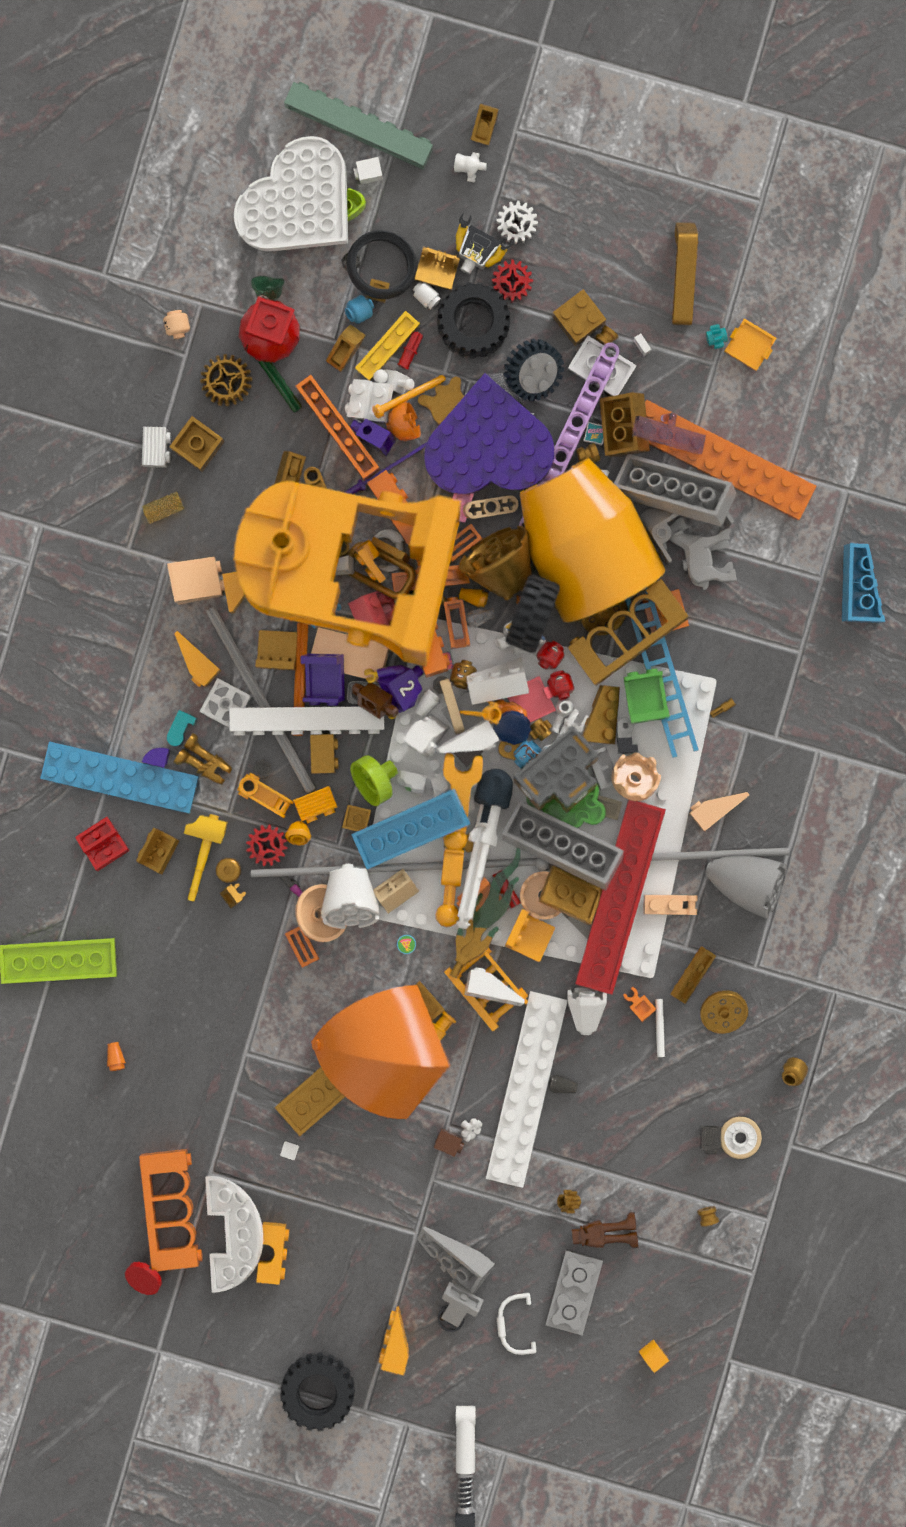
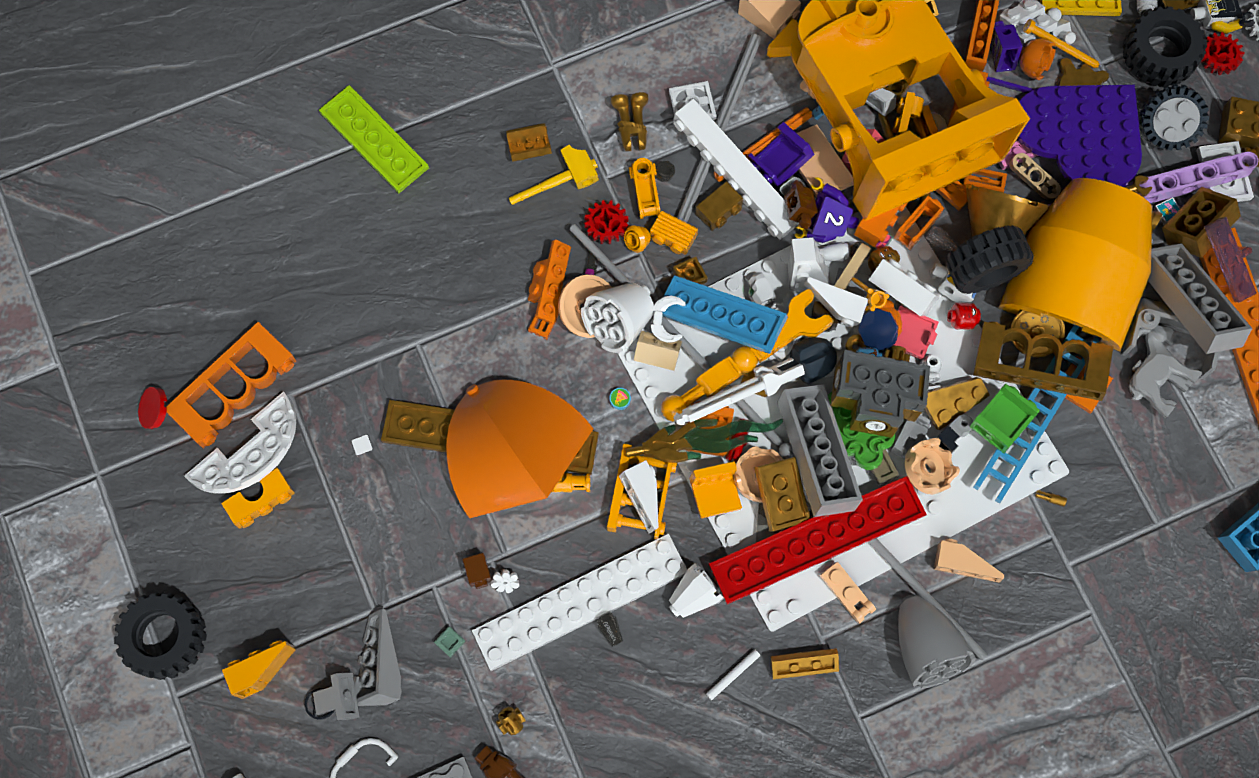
camera: 50 degrees right, 15 degrees down
(102, 844) = (498, 100): red slope -> none
(115, 1058) = (327, 243): orange cone -> none
(119, 777) = (563, 74): dark azure plate -> none
(157, 757) = (604, 85): dark purple brick -> none
(178, 728) = (645, 82): teal leg -> none
(197, 663) = (705, 57): light orange slope -> none
(228, 870) = (560, 207): pearl gold head -> none
(231, 895) = (540, 227): pearl gold tile -> none
(276, 650) = (768, 108): pearl gold bracket -> none
(278, 924) = (548, 281): none -> orange bracket
(373, 779) = (735, 255): lime piece -> none
(382, 880) = (658, 329): none -> white piece
(410, 350) = (1093, 24): red axle -> none
(476, 597) = (953, 223): light orange cone -> none
(480, 1199) = (449, 641): none -> sand green tile
(560, 685) = (947, 344): red head -> none
(561, 453) = (1135, 187): none -> pearl gold bar
(641, 1006) = (738, 641): orange plate -> none
(724, 1012) = (796, 718): pearl gold shield -> none

